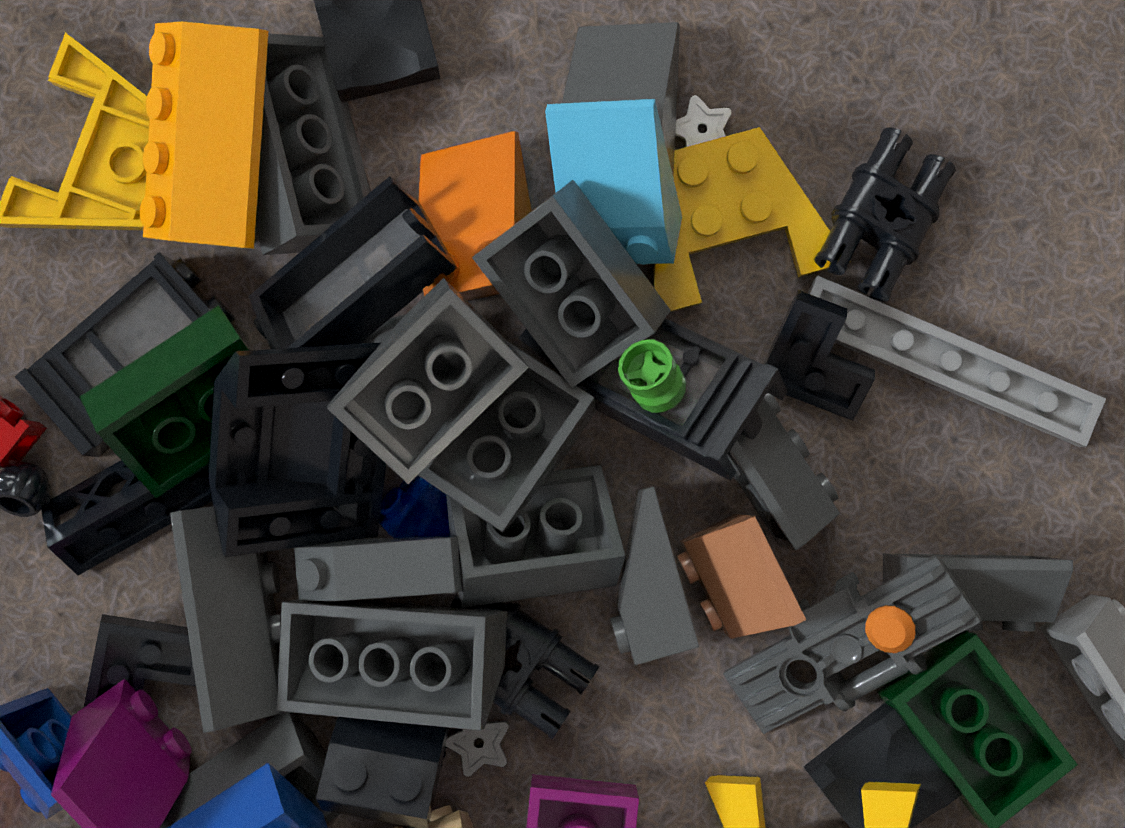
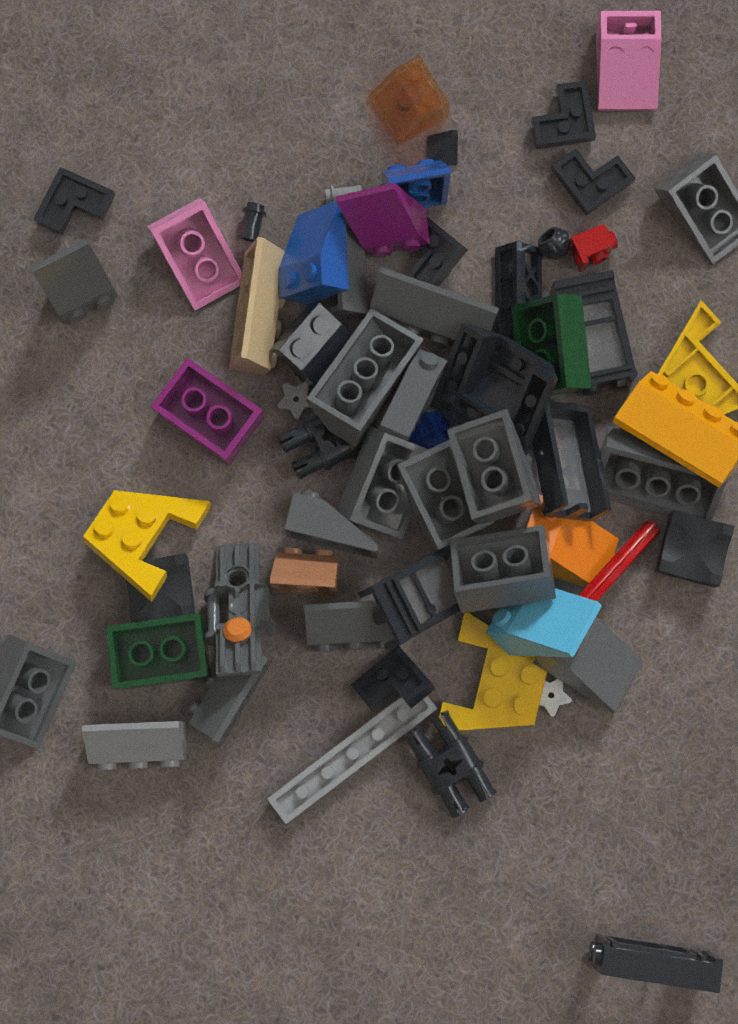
camera: 120 degrees right, 5 degrees down
(461, 128) = (621, 561): none -> red axle
(641, 372) = (432, 580): bright green wheel -> none

